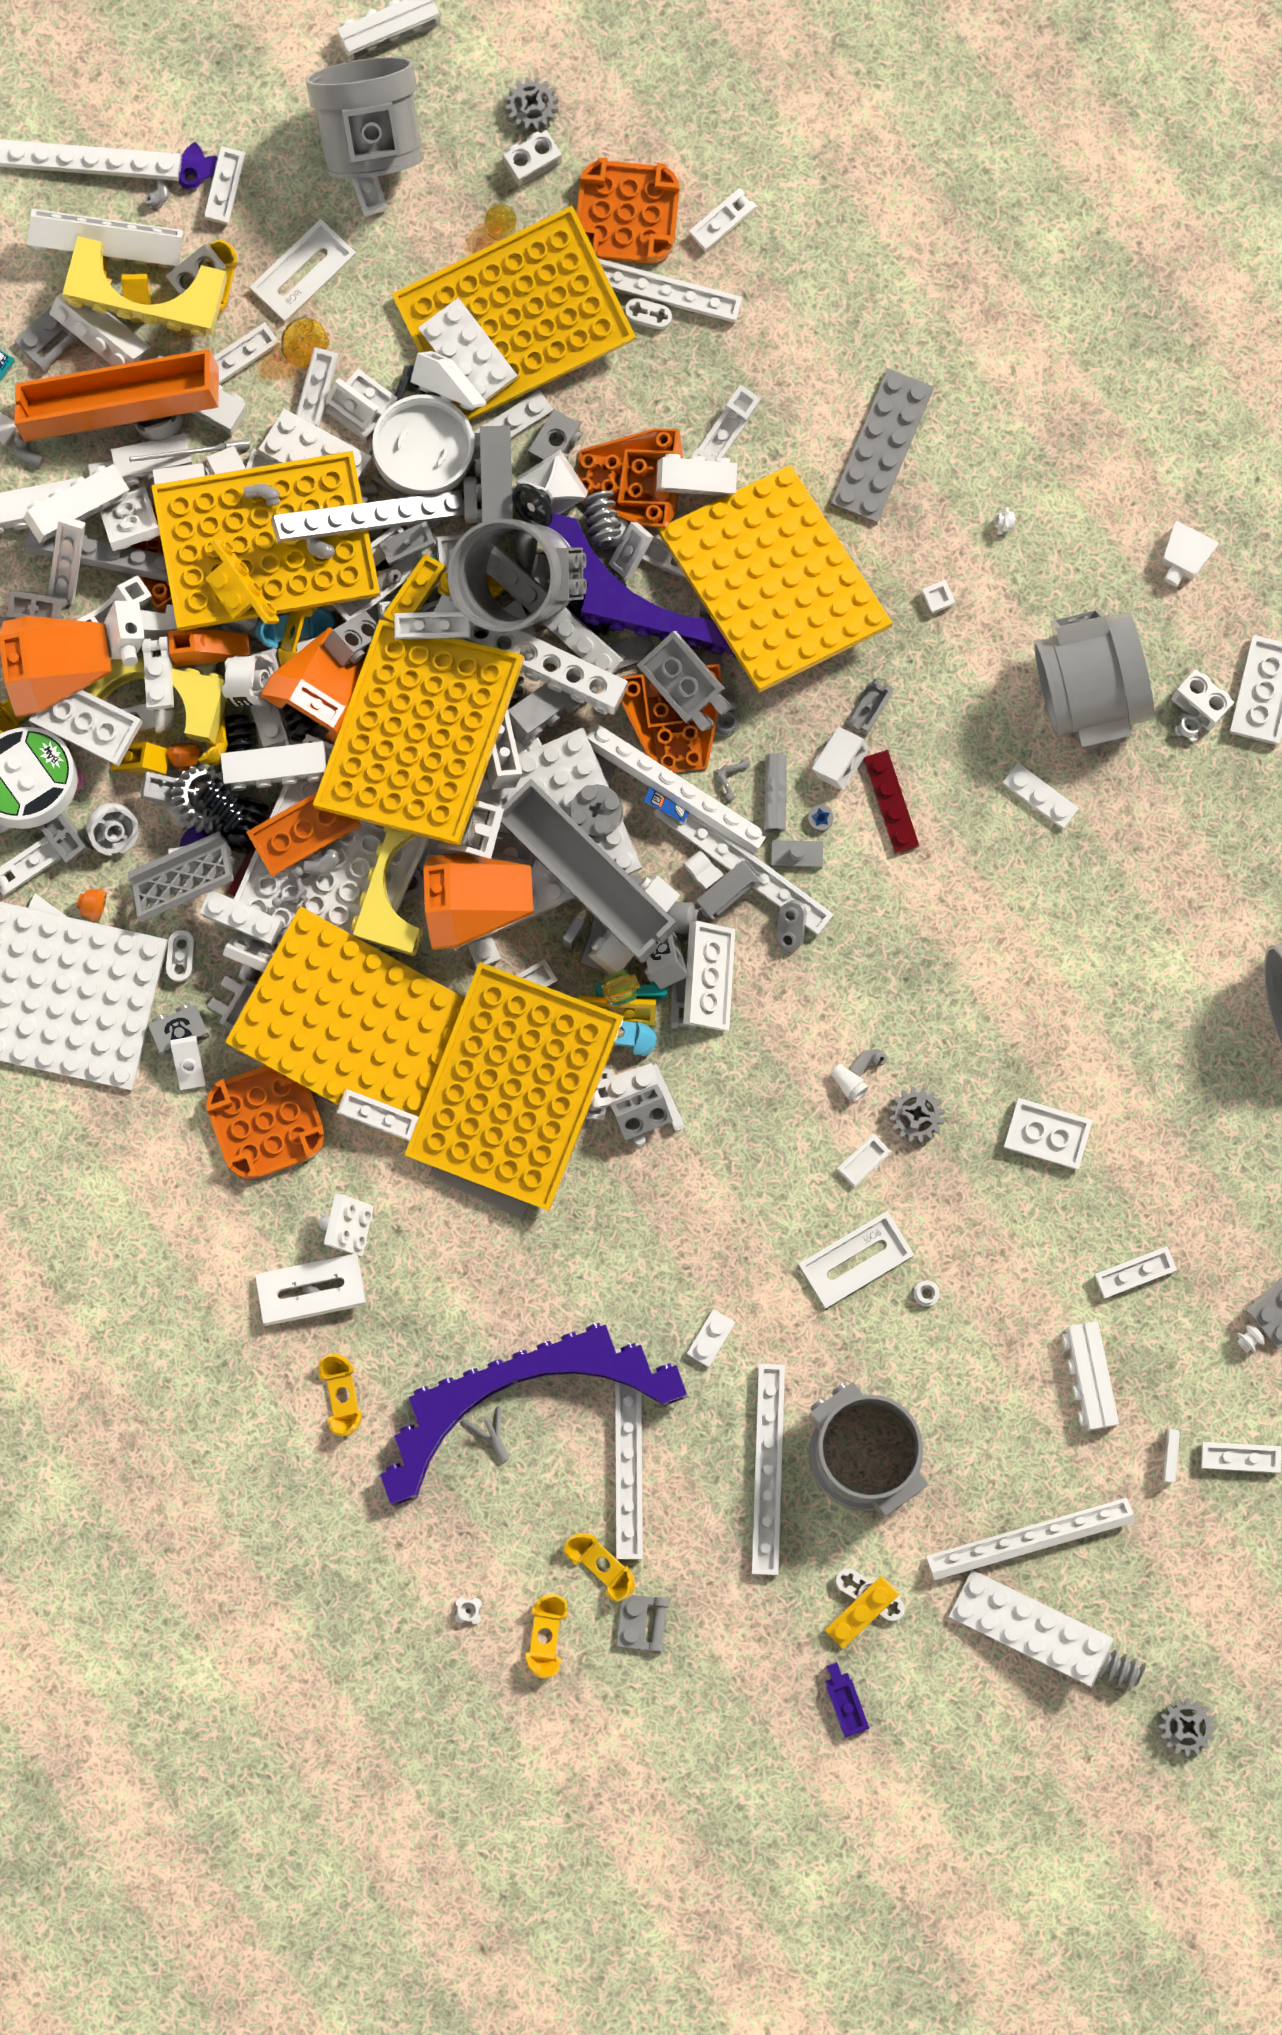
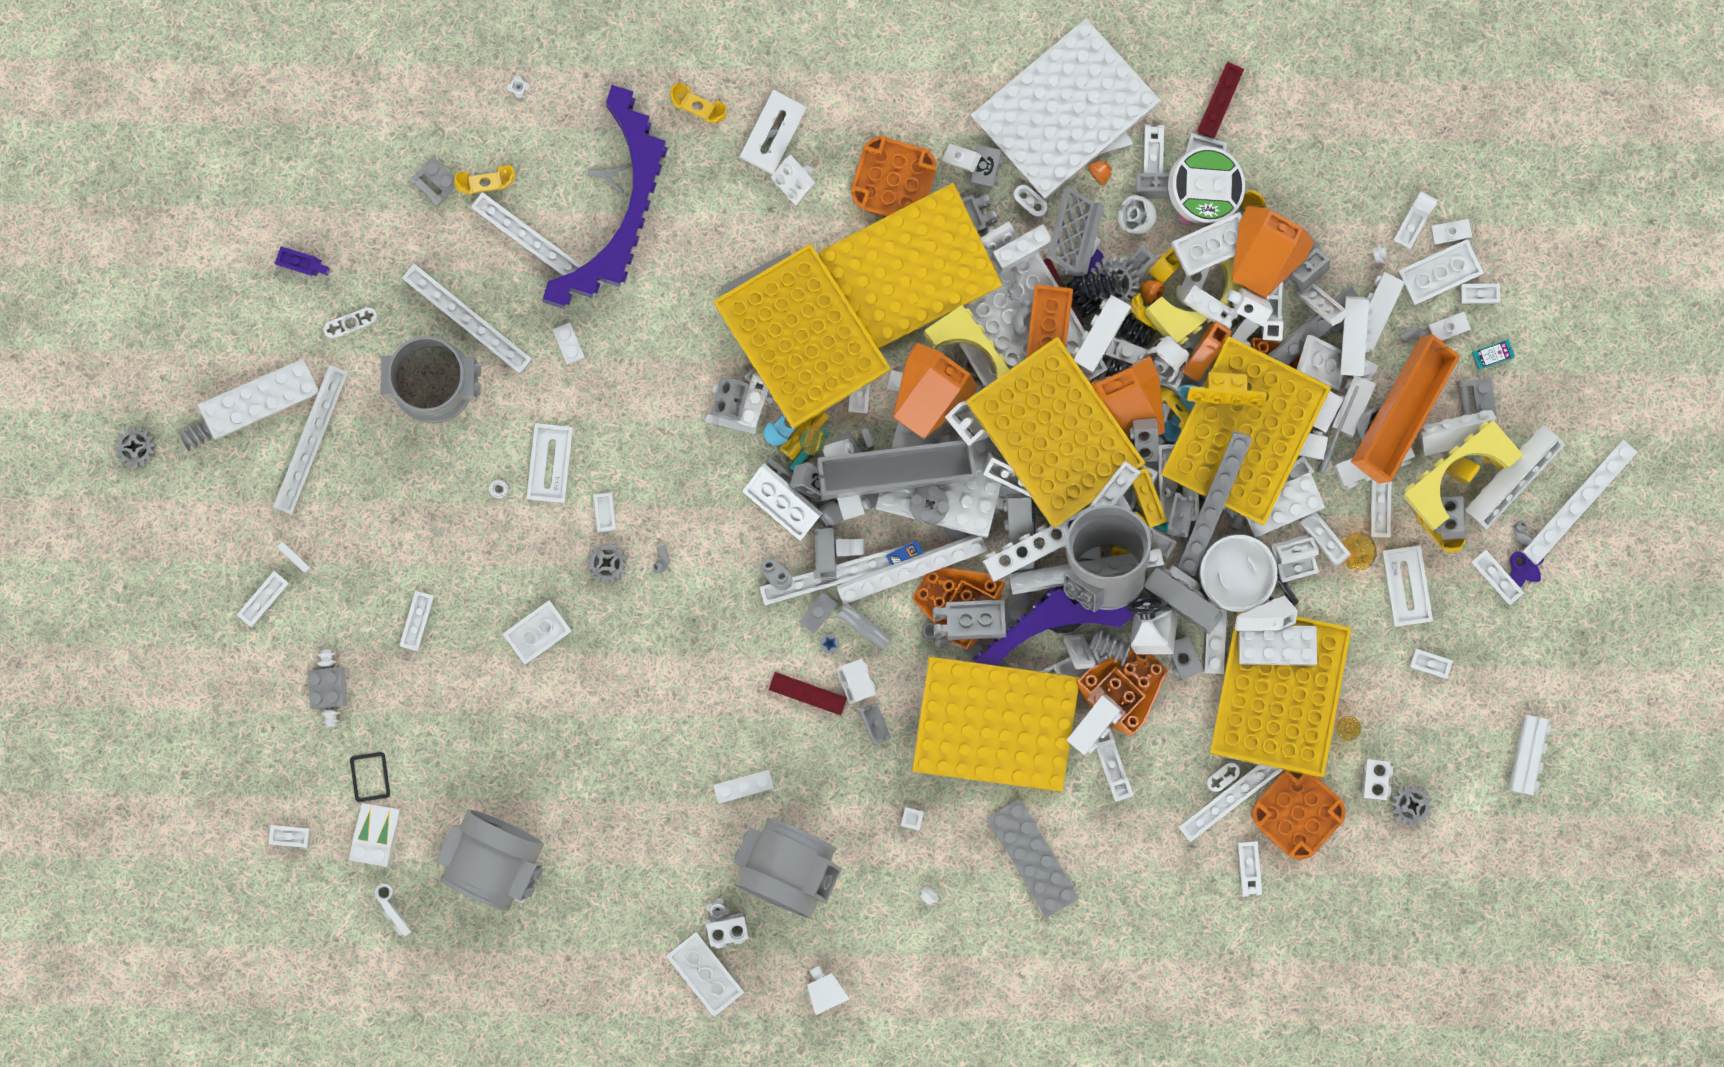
camera: 130 degrees right, 5 degrees up
(263, 490) = (1276, 451): light grey arm -> none
(319, 548) = (1213, 457): light grey arm -> none
(367, 116) = (1471, 688): light grey cylinder -> none
(377, 1115) = (845, 243): white tile -> none
(547, 1614) = (457, 107): yellow piece -> none
(722, 773) = (897, 623): light grey piece -> none
(850, 1083) = (657, 538): white cone -> none
(862, 1611) = (343, 310): yellow plate -> none
(1091, 1376) = (375, 547): white brick -> none

